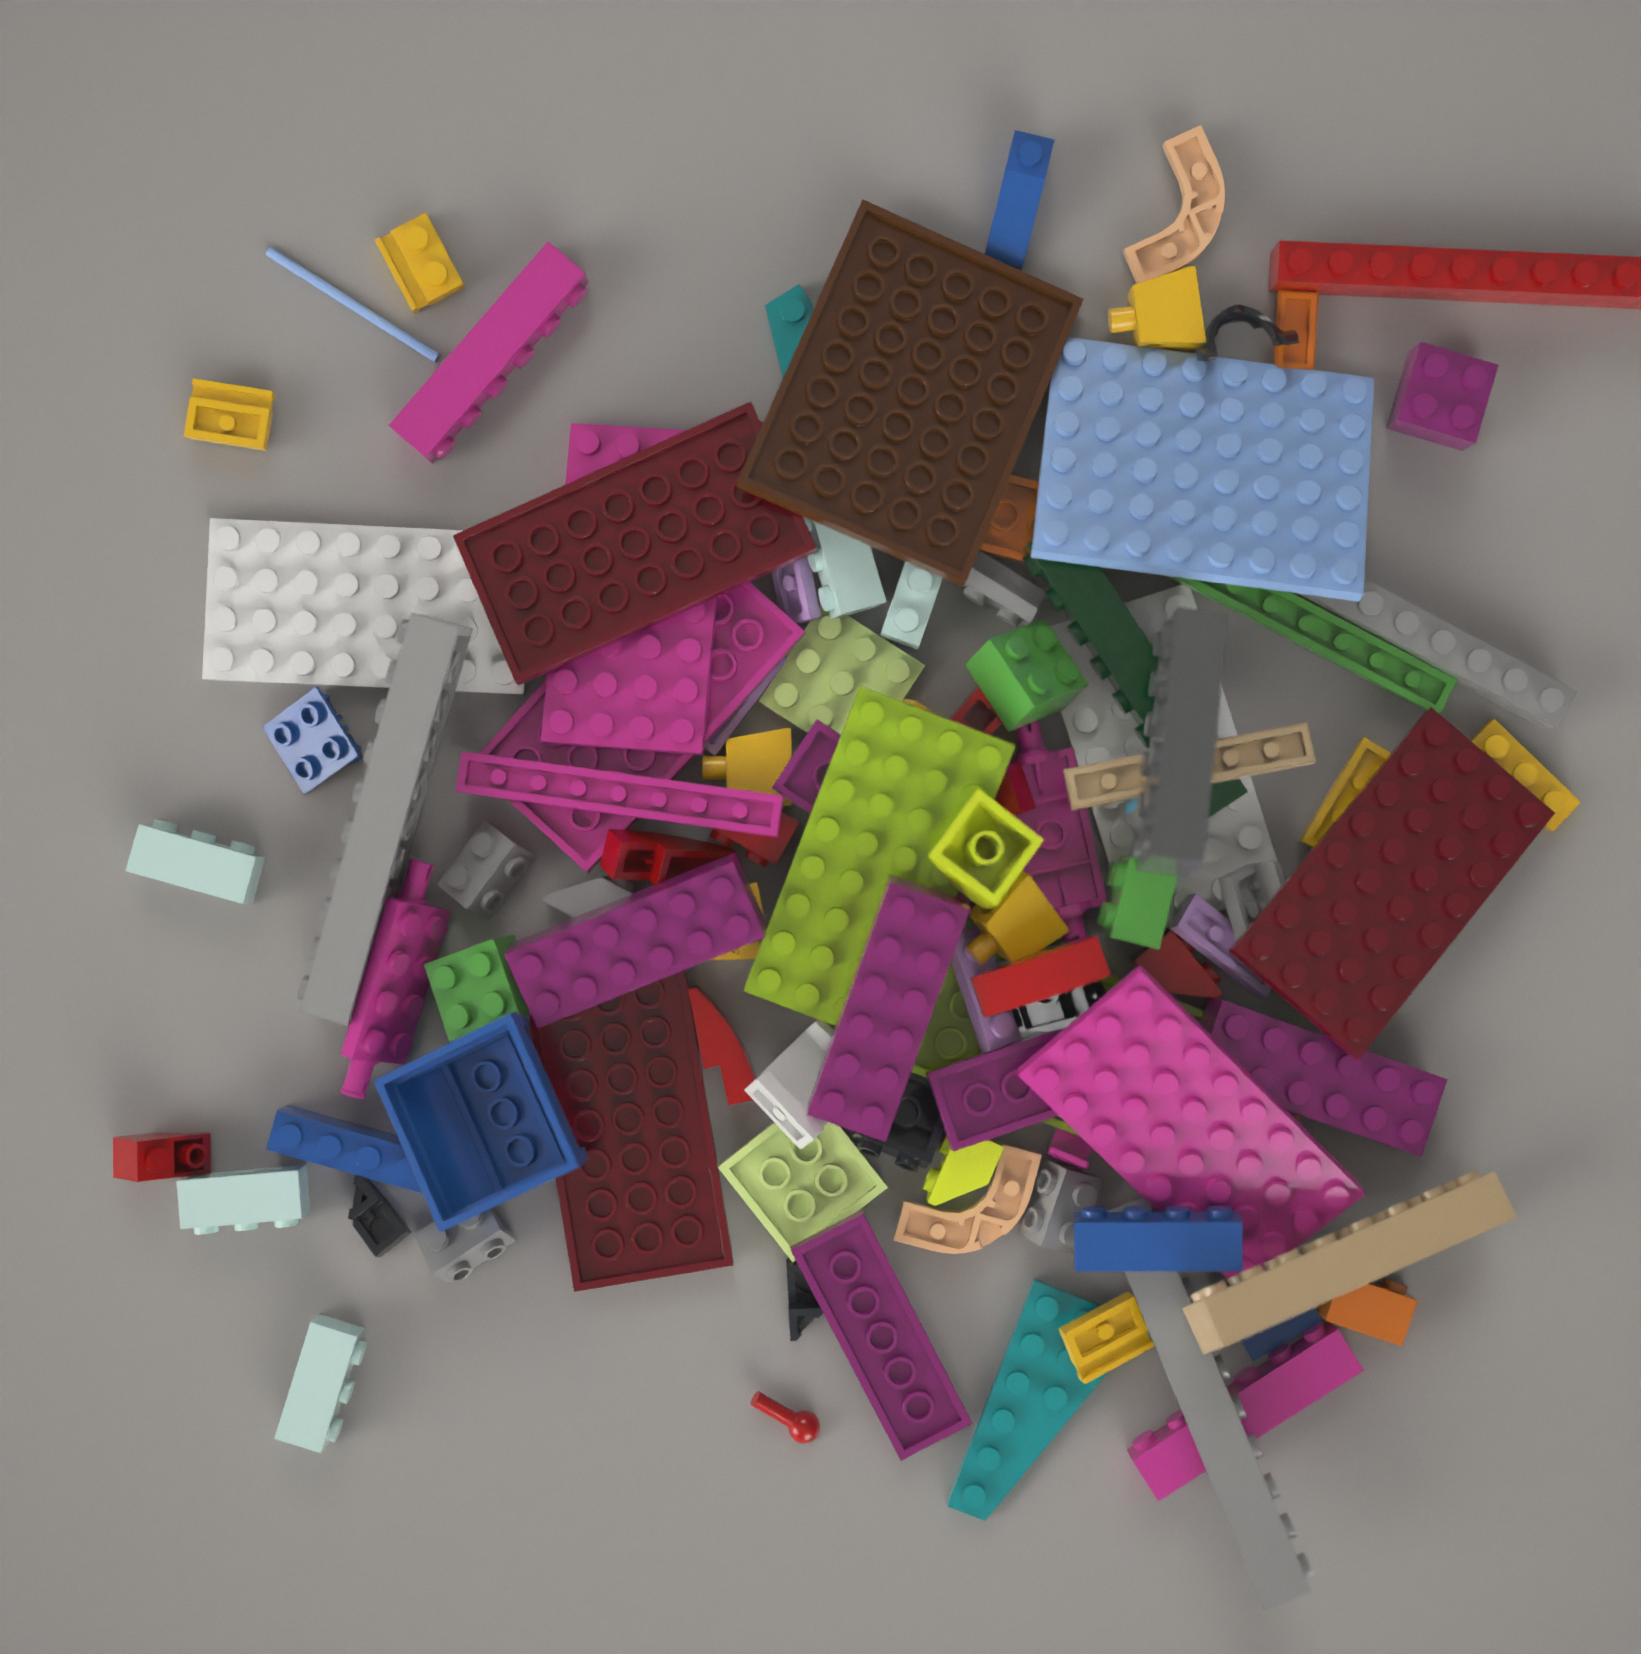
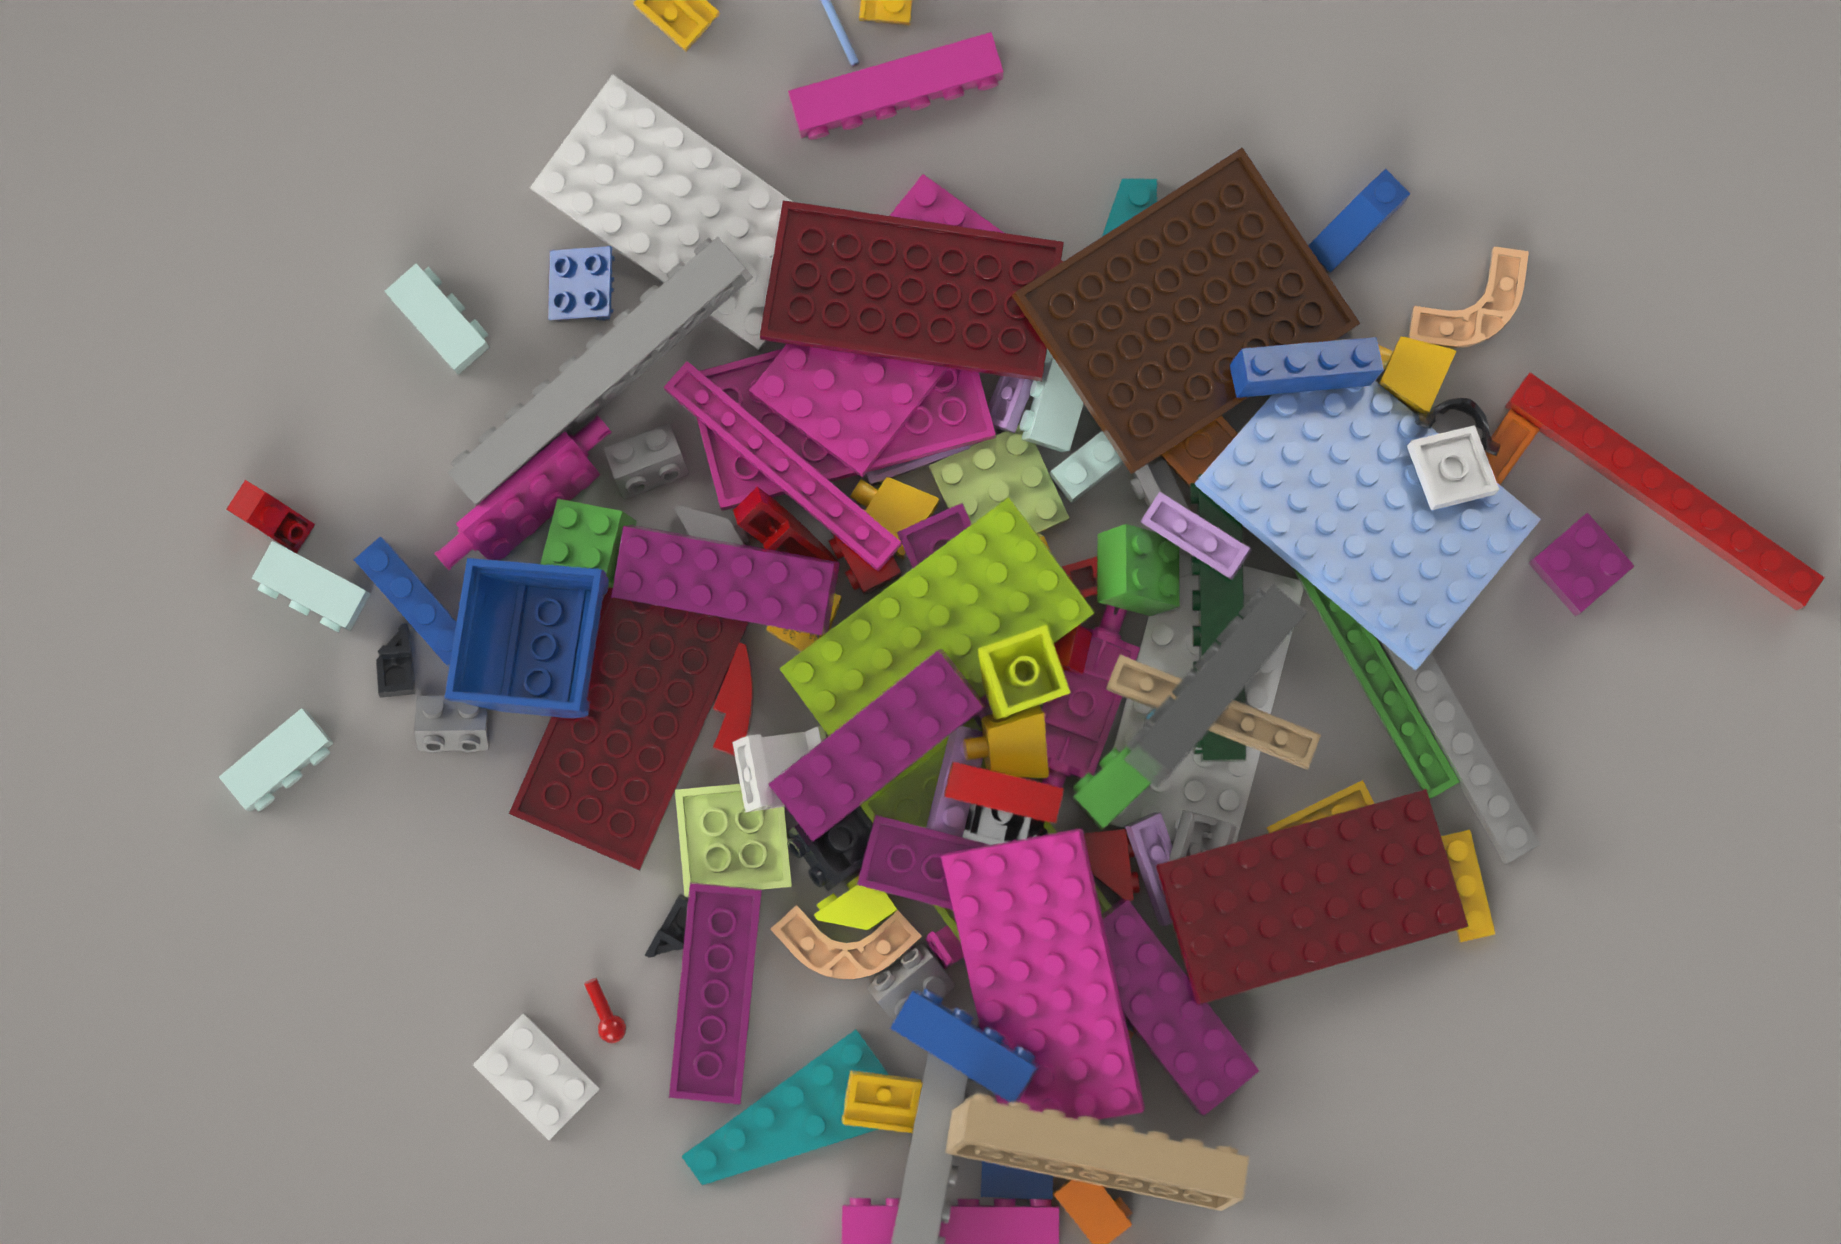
camera: 35 degrees right, 5 degrees down
(762, 1518) = (536, 1076): none -> white plate
(1063, 606) = (1195, 535): none -> lavender plate
(1064, 373) = (1306, 367): none -> brick
(1265, 381) = (1452, 467): none -> white plate

